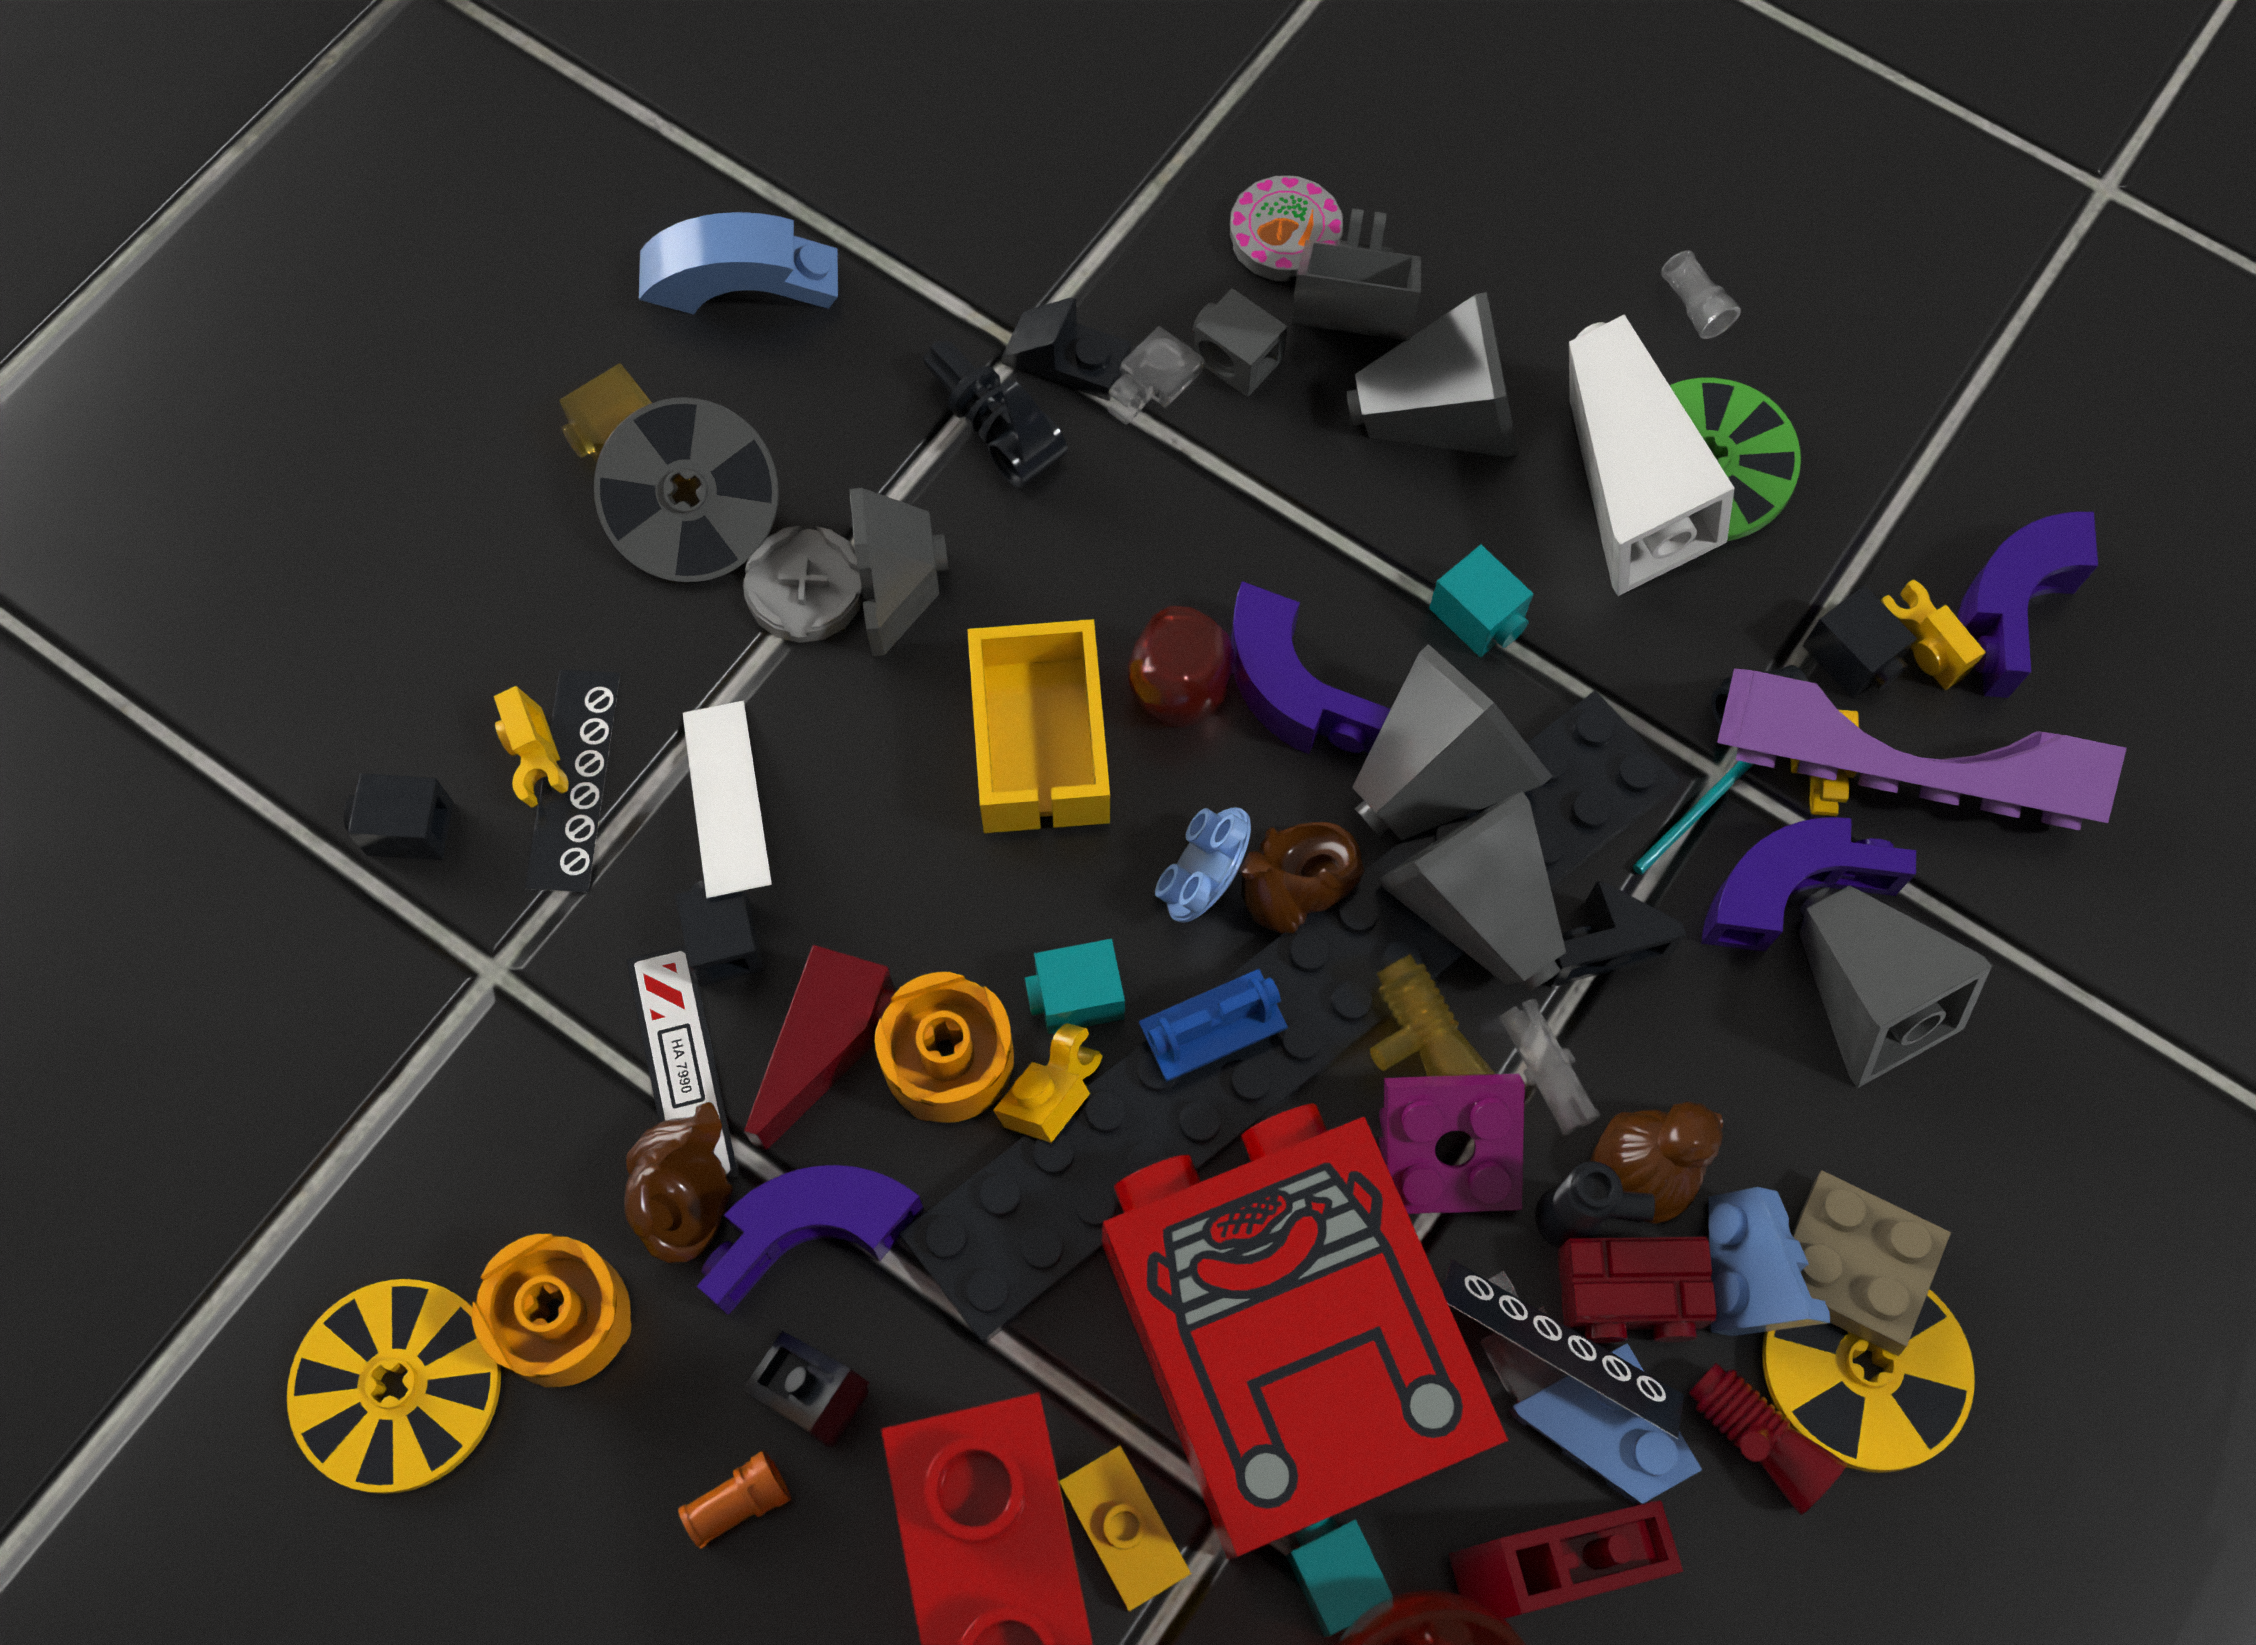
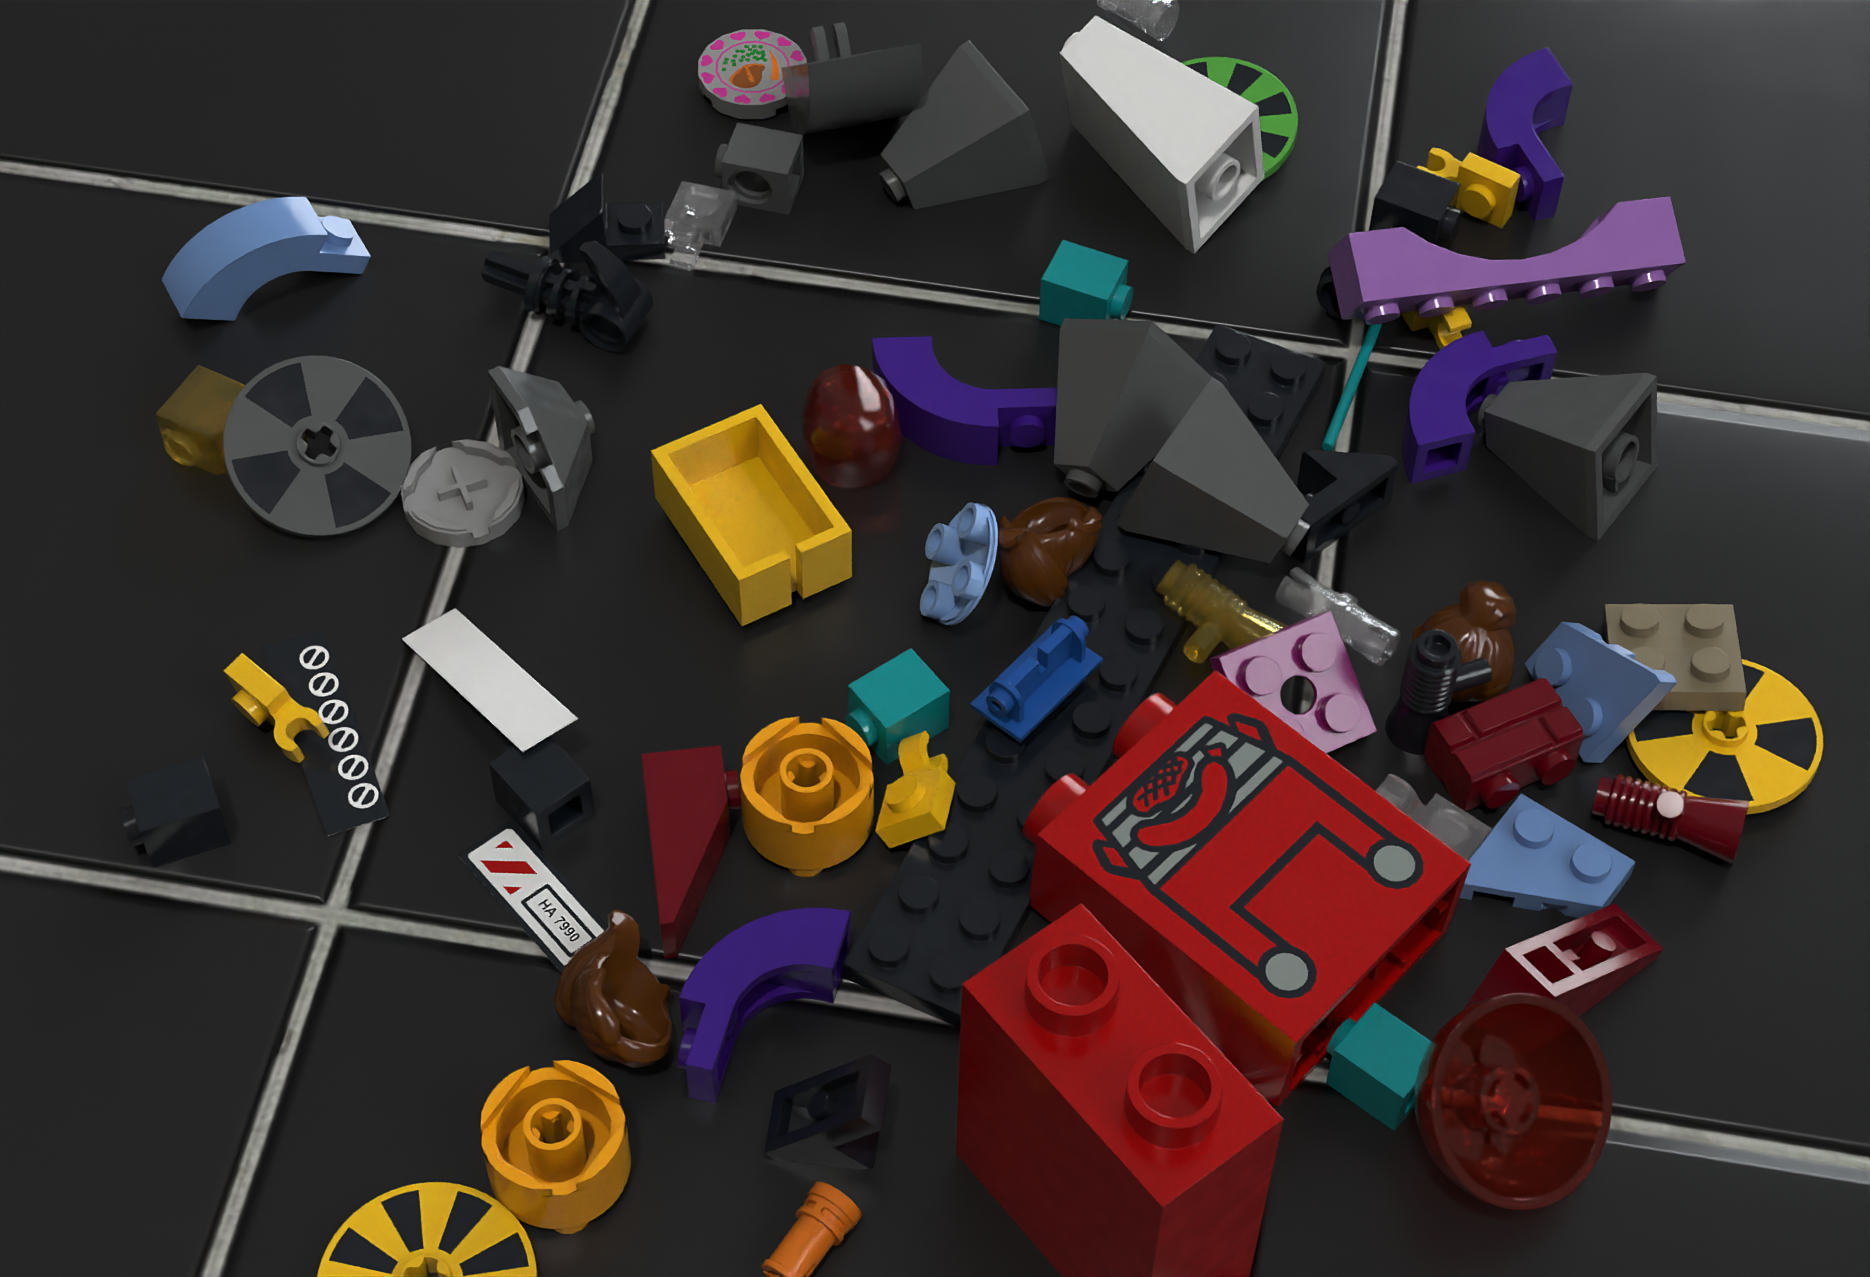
camera: 25 degrees left, 15 degrees down
(1563, 1348) = (1486, 804): black sticker -> none

